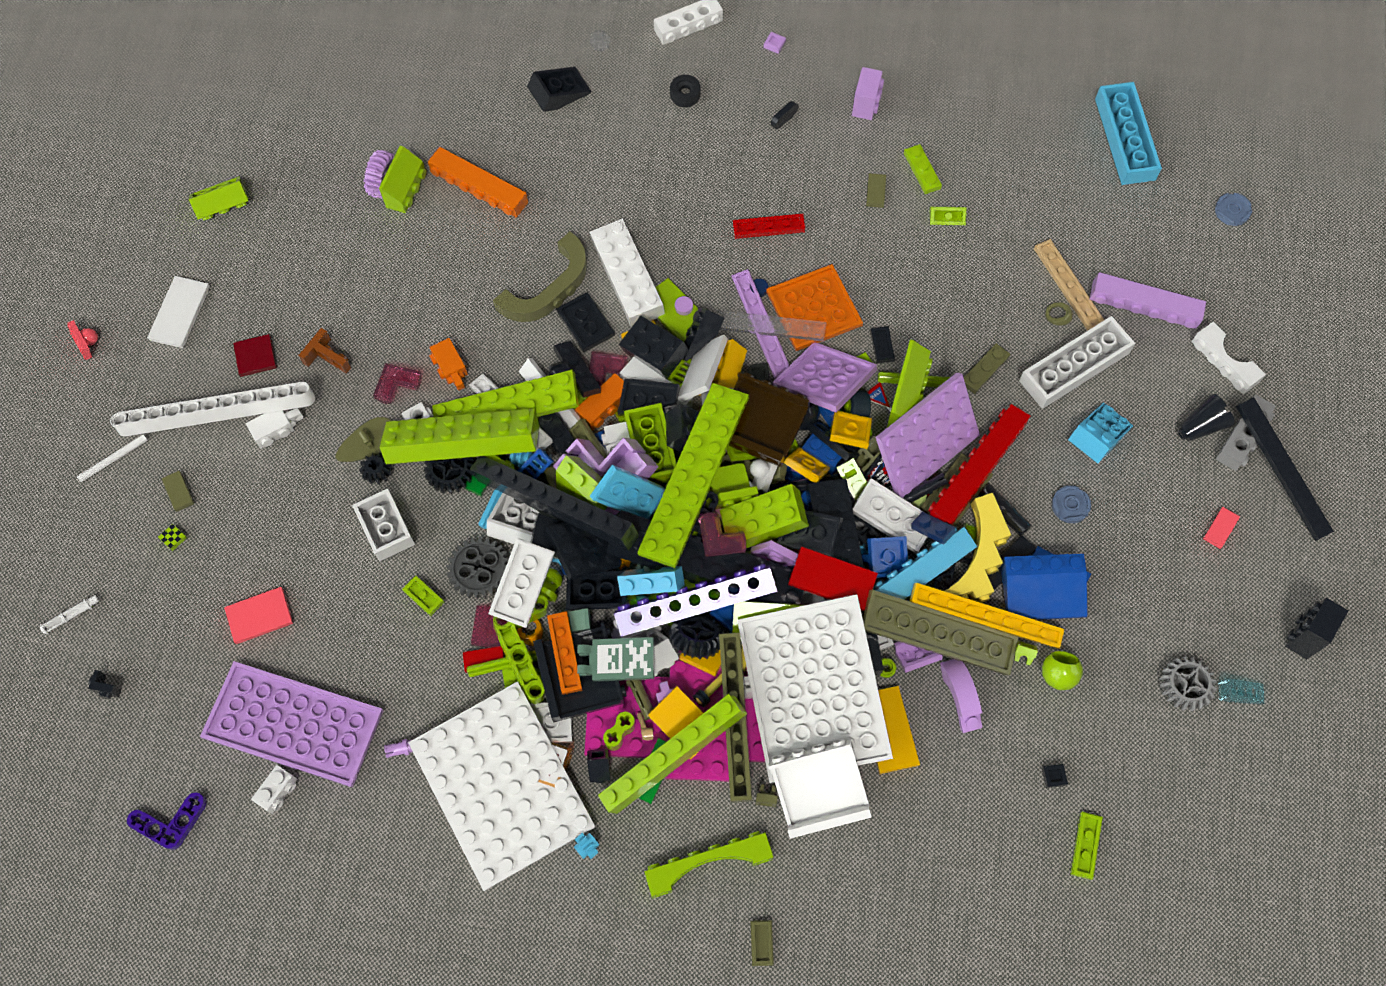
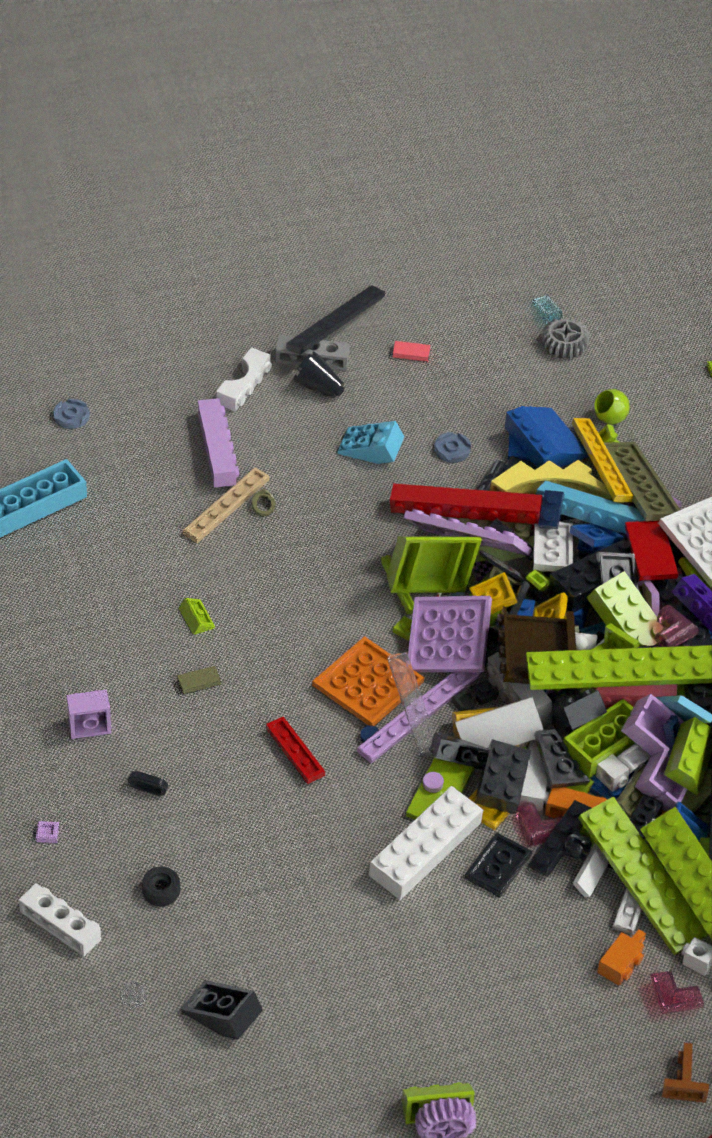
camera: 120 degrees left, 20 degrees down
(478, 182) = (392, 1032): orange brick -> none
(553, 296) = (478, 897): olive arch -> none
(882, 345) = (375, 620): black tile -> none
(922, 169) = (151, 651): lime plate -> none
(964, 693) = (674, 458): lavender arch -> none
(986, 368) = (354, 539): olive plate -> none
(1054, 776) = (697, 395): black plate -> none
(1076, 362) = (314, 471): white brick -> none
(1316, 628) = (475, 267): black brick -> none

